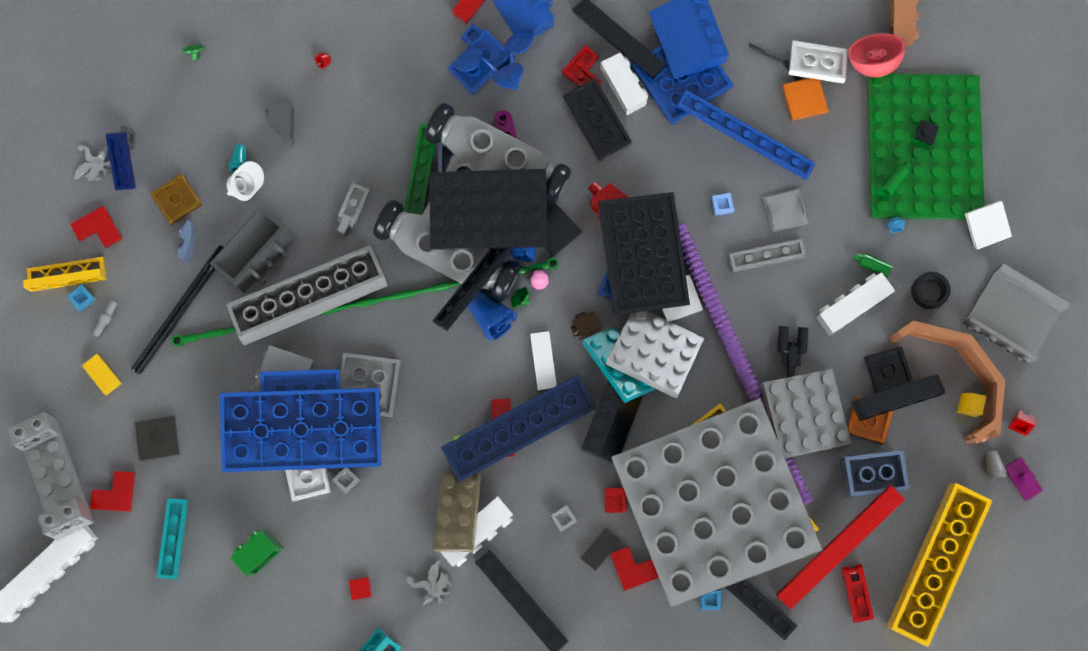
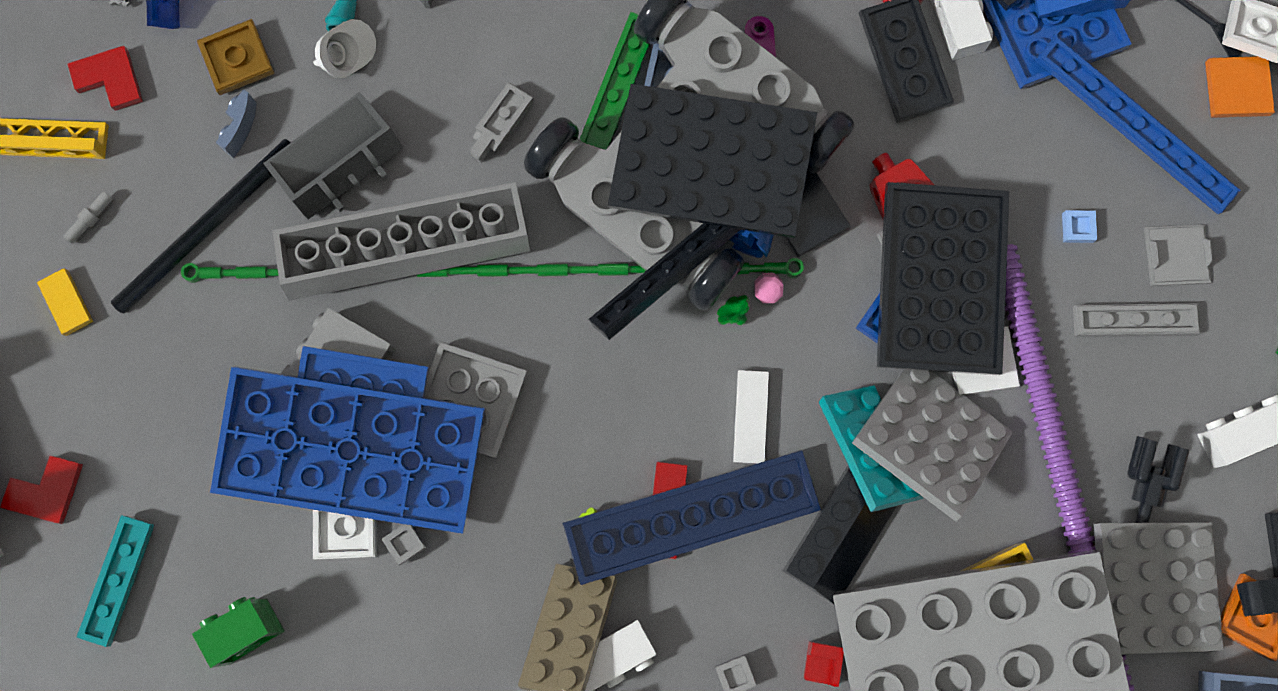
camera: 15 degrees right, 0 degrees up
(81, 298) = (59, 178): dark azure plate -> none
(157, 438) = (127, 418): clear smoke plate -> none
(491, 315) = (683, 329): blue cone -> none
(585, 325) = (828, 374): dark brown brick -> none

